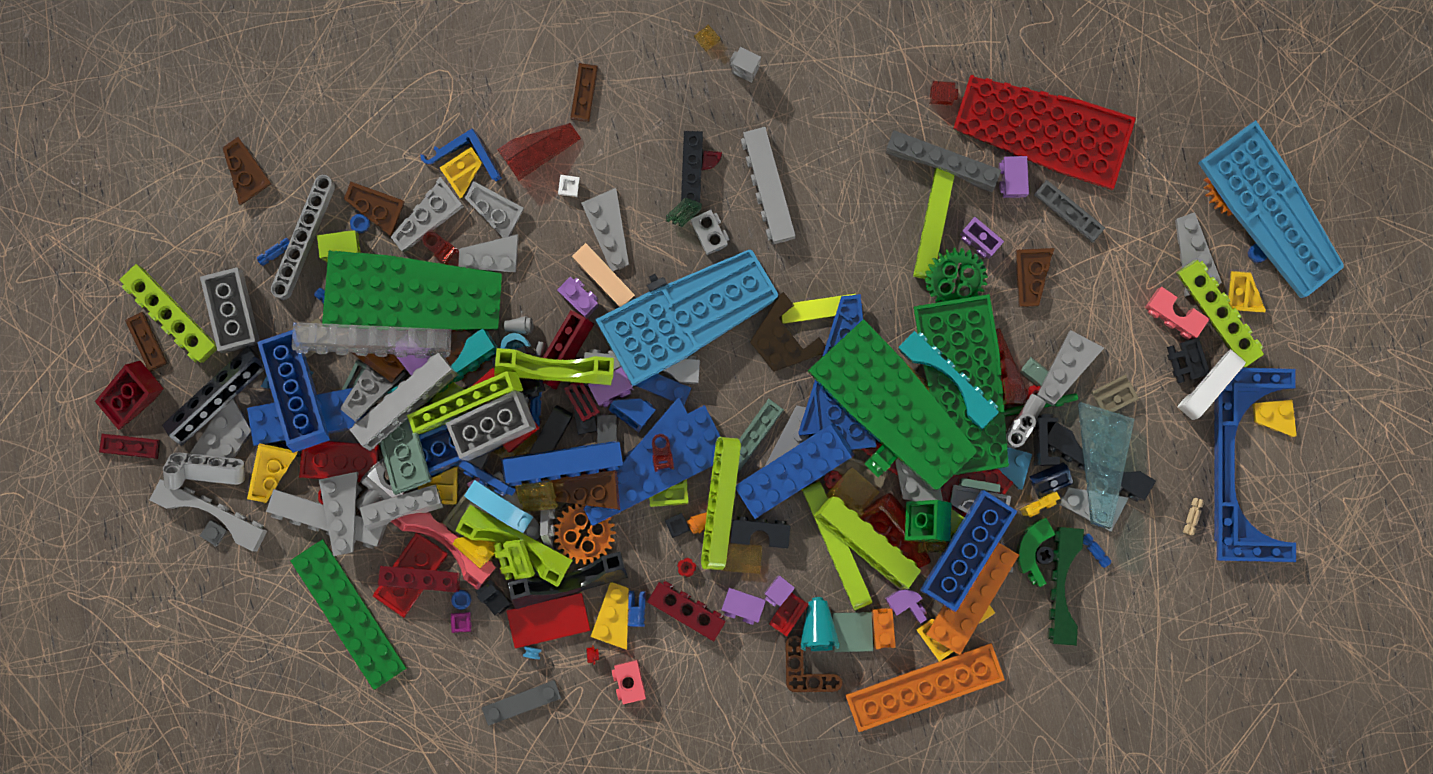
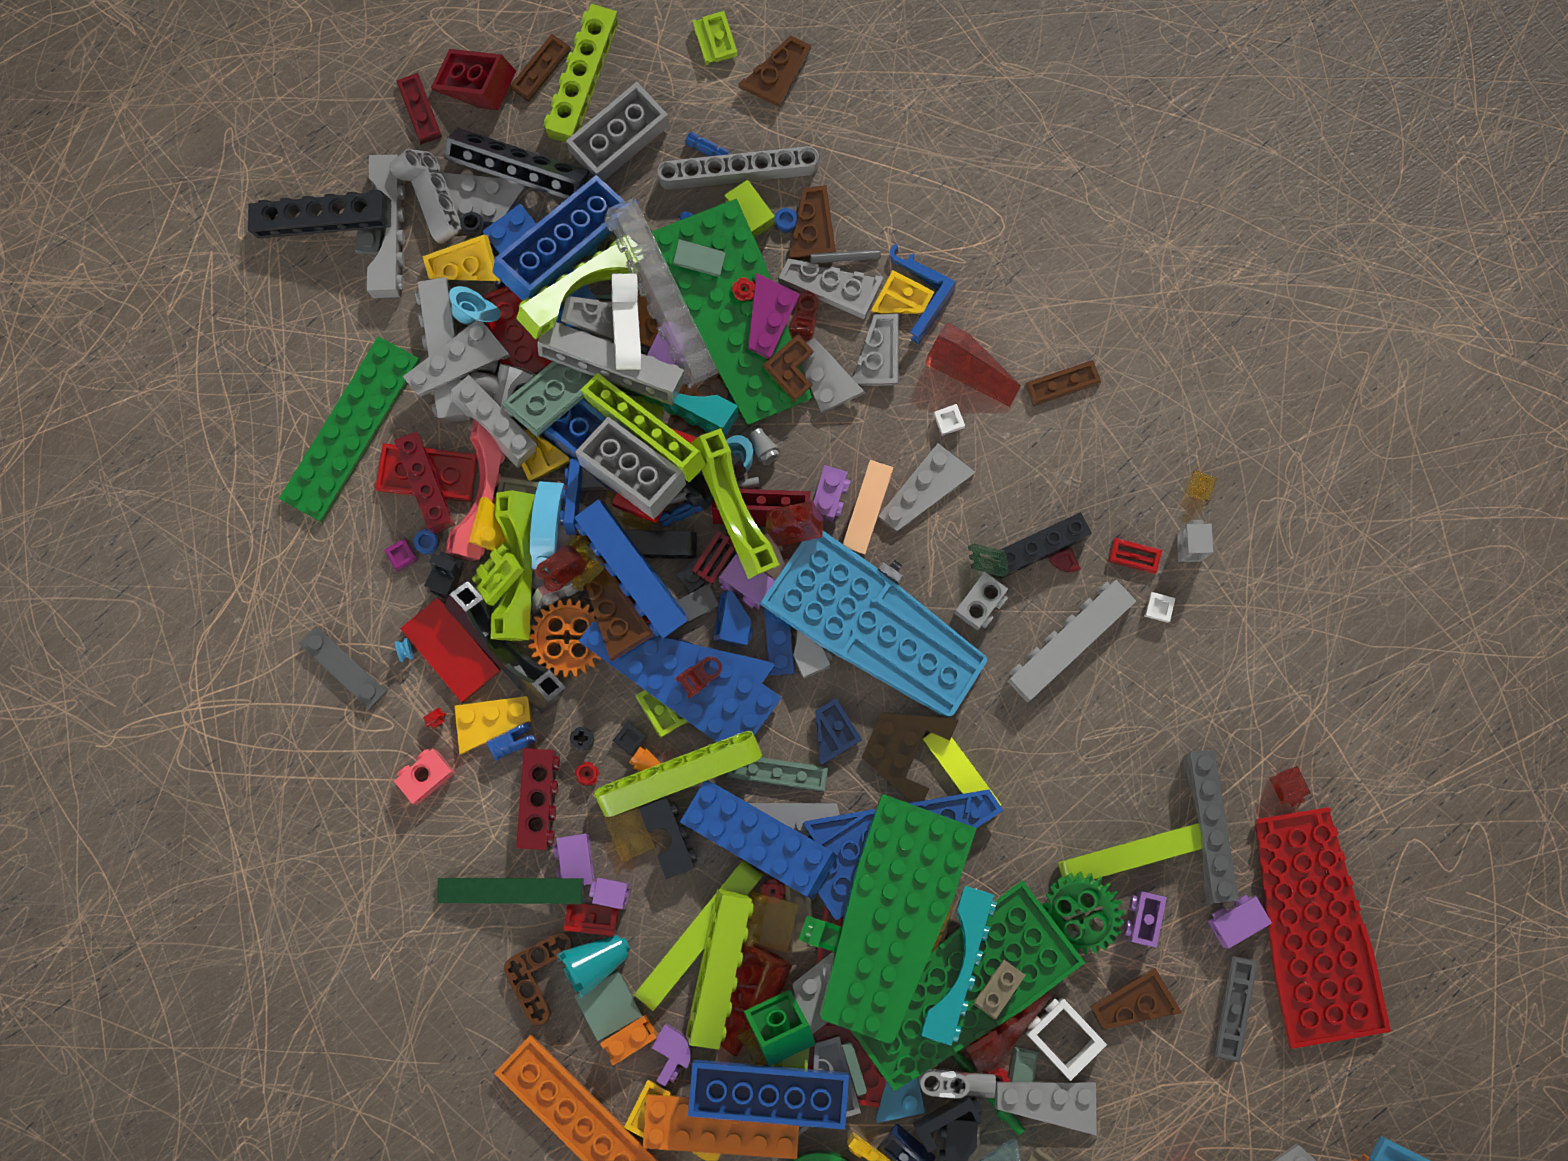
camera: 65 degrees right, 5 degrees down
(150, 599) = (307, 222): none -> black brick
(193, 203) = (715, 37): none -> lime plate
(239, 450) = (472, 224): none -> black cone
(306, 482) = (471, 306): none -> medium azure piece
(342, 430) = (541, 312): none -> arch
(360, 300) = (699, 258): none -> sand green tile
(382, 376) = (626, 322): none -> white beam
(399, 275) = (739, 293): none -> red plate
(410, 195) = (845, 256): none -> dark grey bar
(427, 271) = (770, 313): none -> magenta wing
(471, 281) = (784, 369): none -> reddish brown tile
(534, 510) = (562, 566): none -> clear red piece
(588, 332) = (794, 523): none -> clear red brick
(662, 564) = (586, 744): none -> black bush
(722, 121) = (1134, 565): none -> red tile
(740, 660) = (511, 890): none -> dark green tile
(746, 381) = (834, 731): none -> dark blue wing
(777, 113) = (1159, 607): none -> white plate
(978, 361) = (999, 989): none -> dark tan brick
(1049, 328) = (1084, 1056): none -> white window

